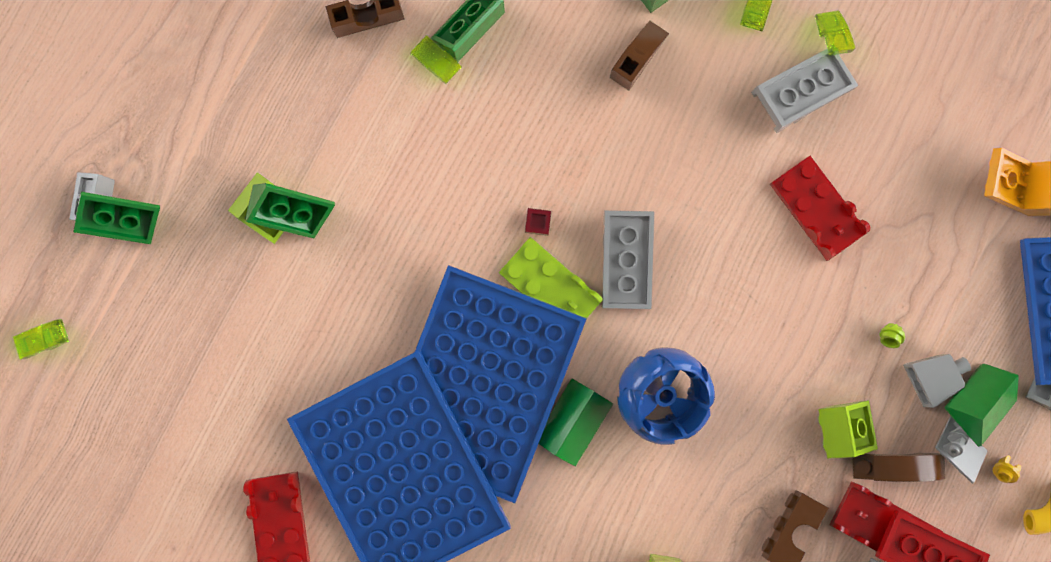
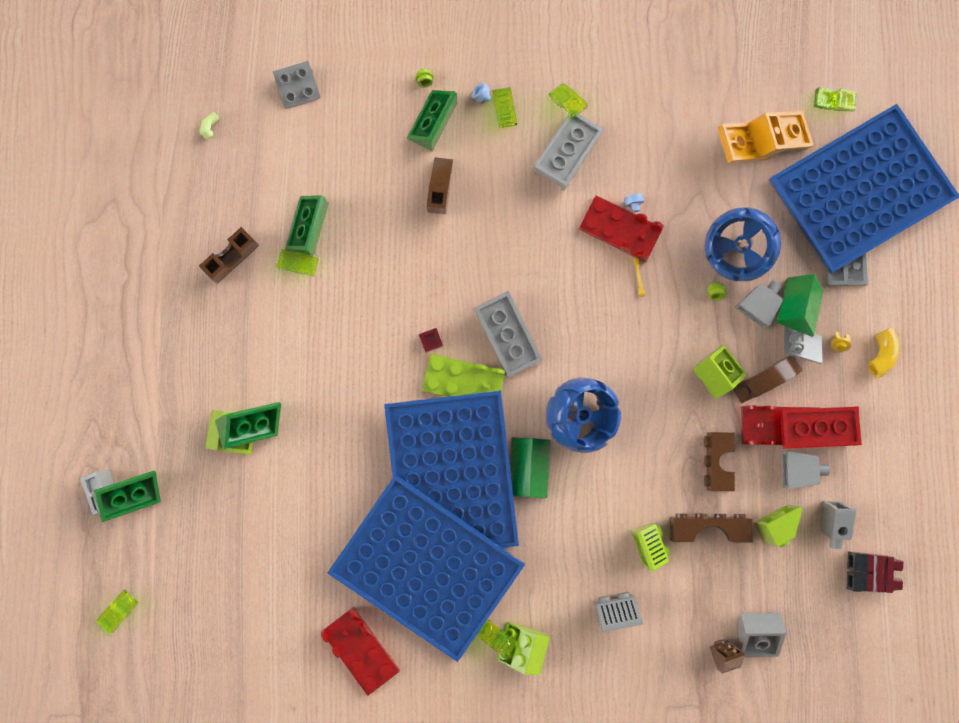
camera: 35 degrees left, 0 degrees up
(804, 292) = (641, 292): none -> yellow hinge
(850, 185) = (634, 201): none -> light blue tile
(955, 328) = (755, 264): none -> blue wheel

